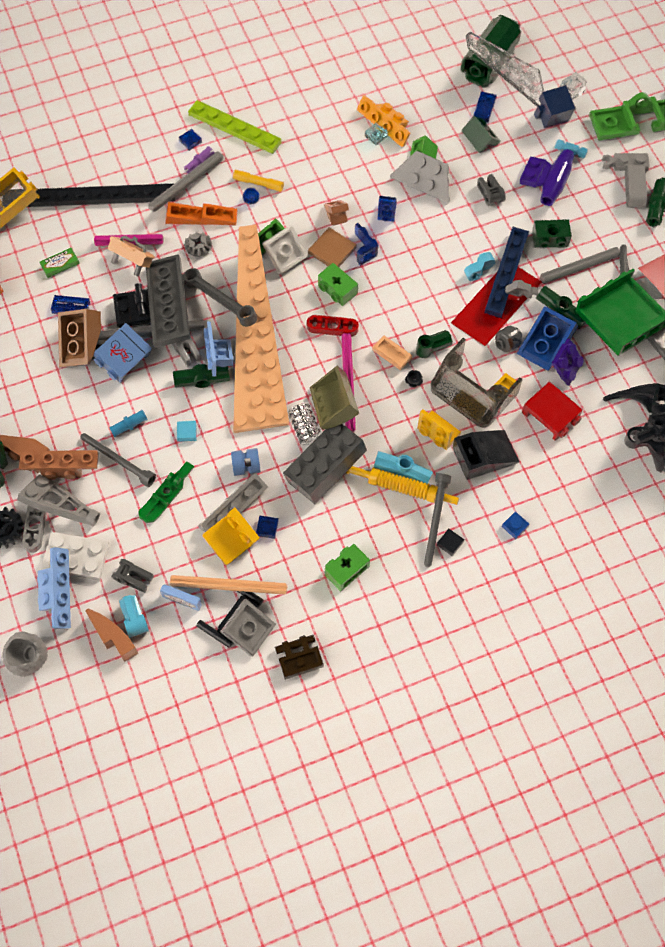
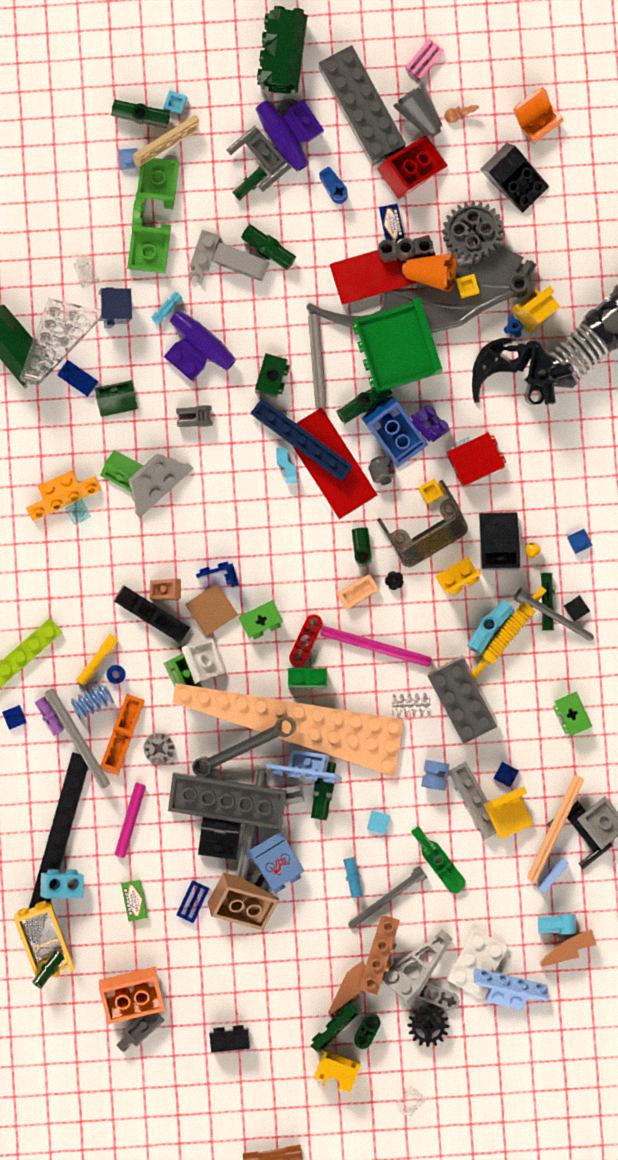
camera: 65 degrees left, 20 degrees up
(24, 653) = (565, 1031): light grey hair -> none
(53, 202) = (61, 888): none -> medium azure brick
(127, 570) = (510, 915): dark grey piece -> none
(131, 252) = (154, 823): light nougat piece -> none
(221, 183) = (92, 700): none -> medium blue piece
(299, 333) = (307, 678): none -> green brick
(311, 206) = (151, 614): none -> black slope
(333, 399) = (402, 670): olive slope -> none
(387, 208) = (182, 535): clear blue bracket -> none
(449, 511) = (547, 598): none -> dark green pin
(489, 486) = (532, 550): none -> yellow hinge
(520, 288) = (331, 437): light grey plate -> none

